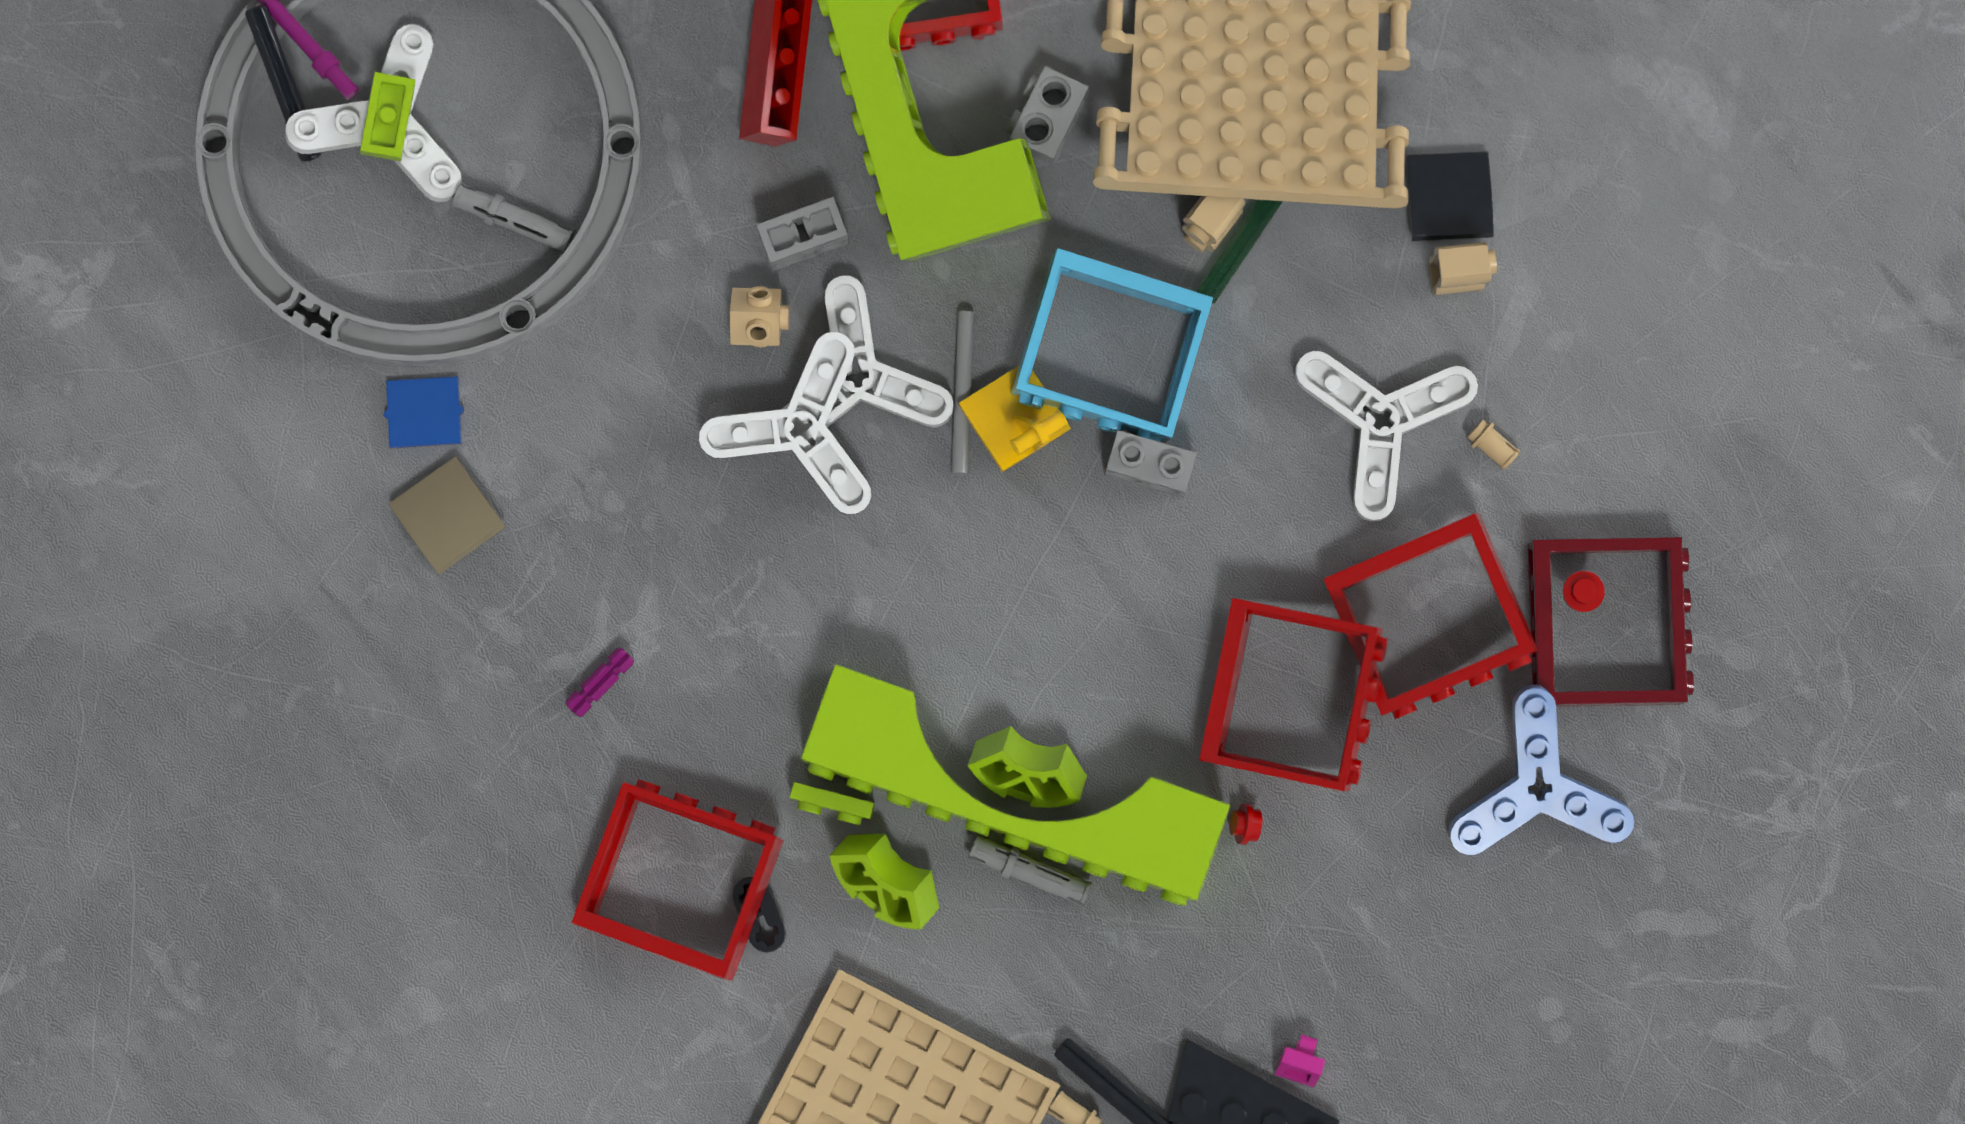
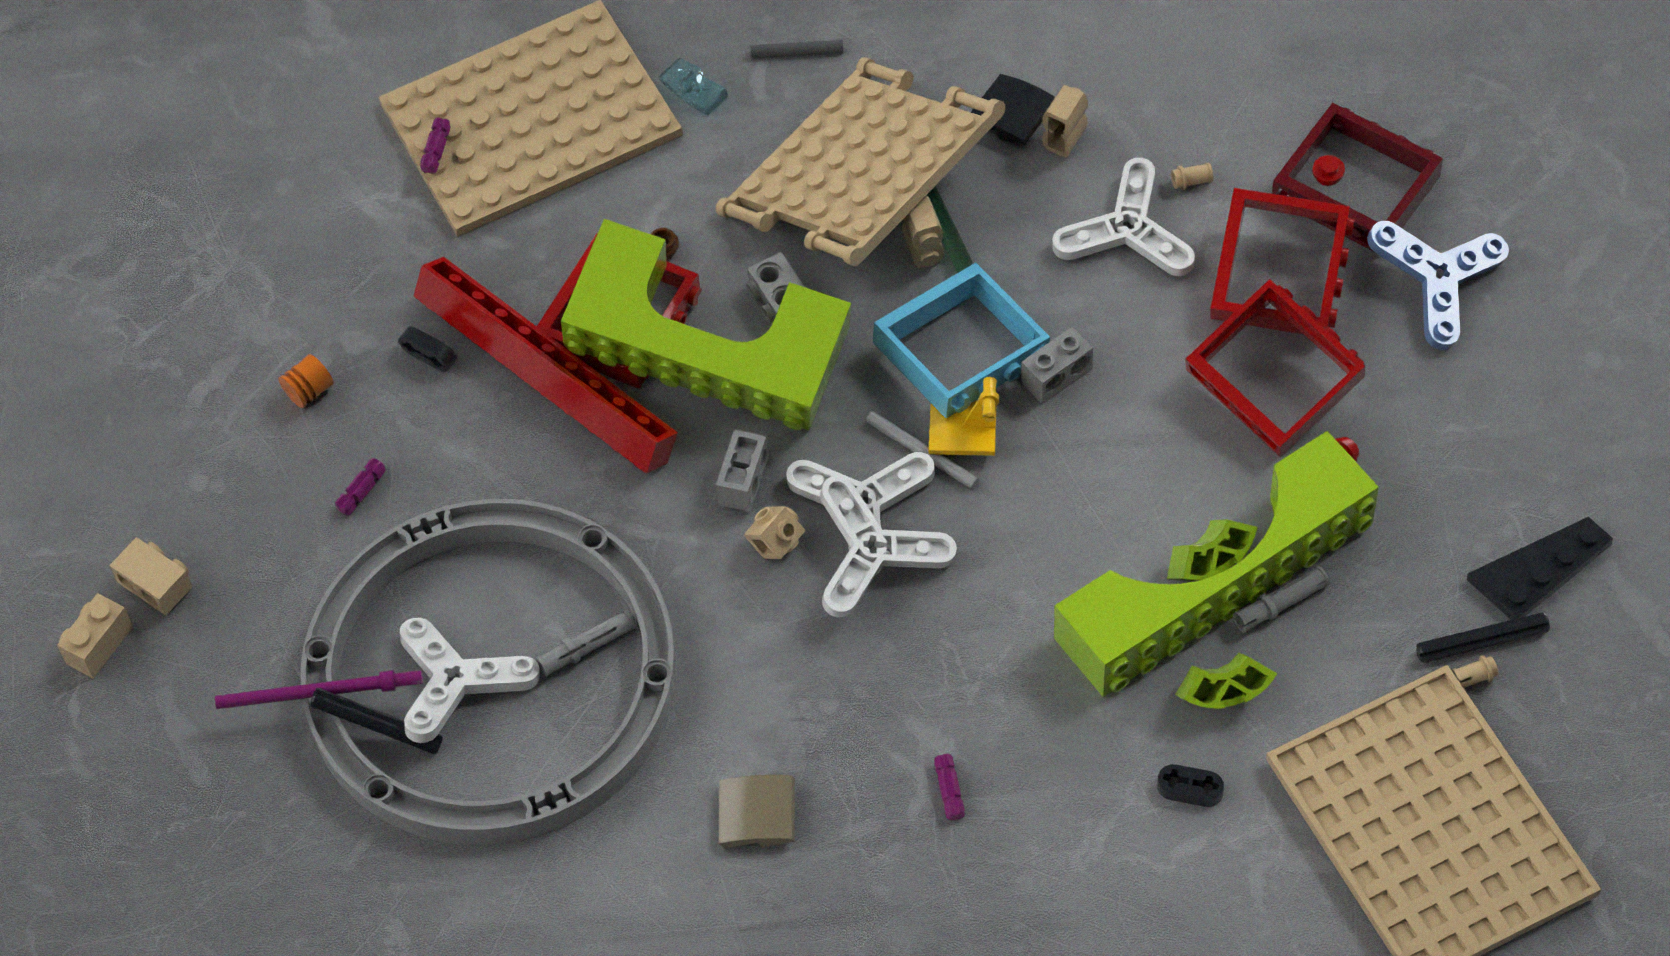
camera: 50 degrees left, 25 degrees down
(387, 116) = (455, 664): lime plate -> none
(423, 412) = (672, 785): blue piece -> none
(608, 854) = (1161, 857): red window -> none
(848, 808) = (1136, 695): lime plate -> none
(1300, 1063) = (1533, 514): dark pink tile -> none

